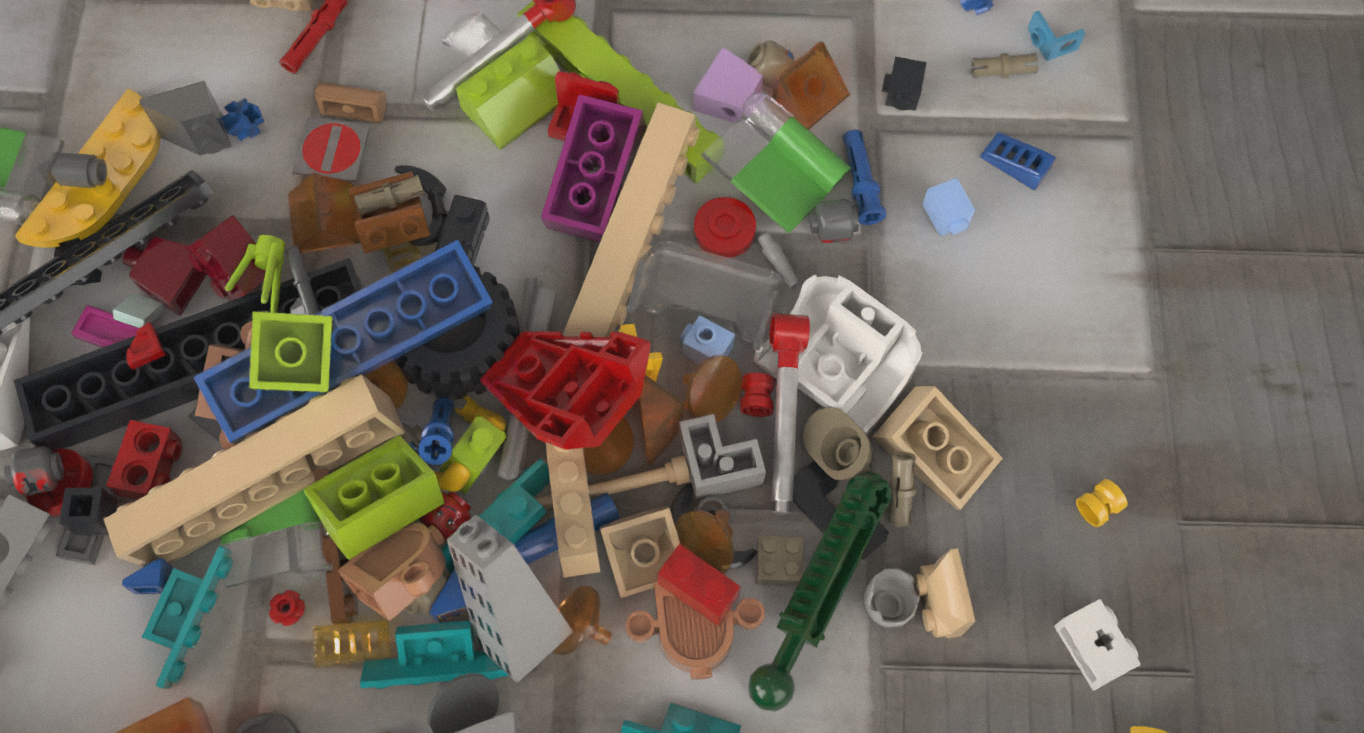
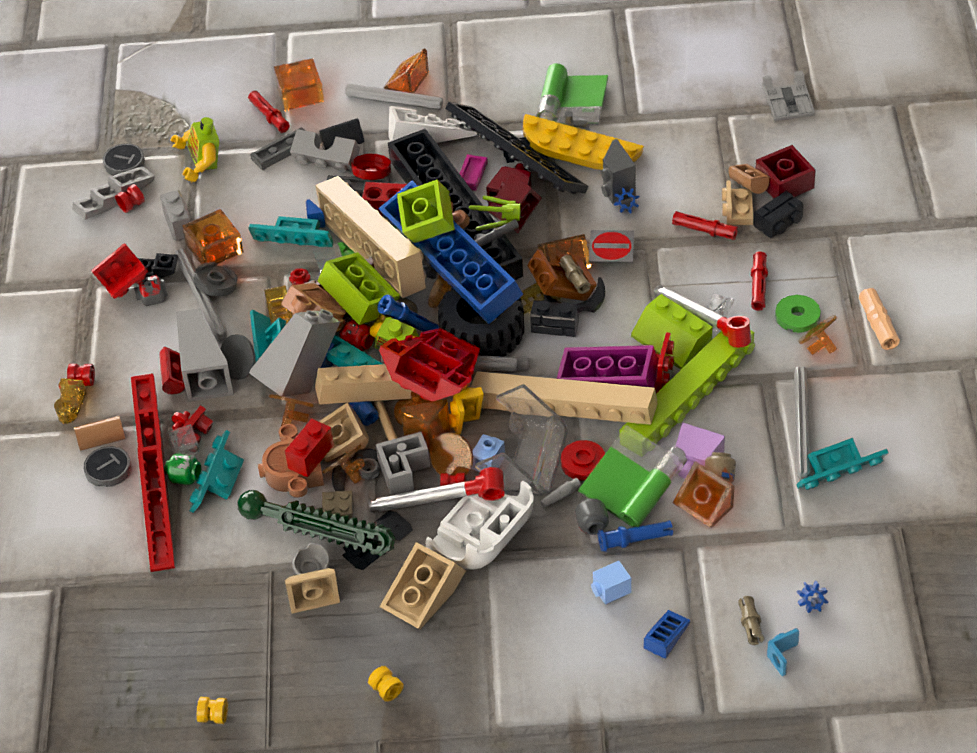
camera: 90 degrees right, 20 degrees down
(34, 470) = (373, 151): dark grey head -> none
(79, 170) = (568, 127): dark grey brick -> none
(86, 509) = (350, 176): black brick -> none
(137, 310) = (482, 177): light aqua tile -> none
(144, 347) = (450, 177): red tile -> none
(351, 102) = (652, 251): medium nougat brick -> none
(837, 444) = (415, 529): dark tan piece -> none
(902, 489) = (385, 560): dark tan pin -> none
(904, 83) = (719, 555): black brick -> none
(1102, 663) = (283, 680): white brick -> none

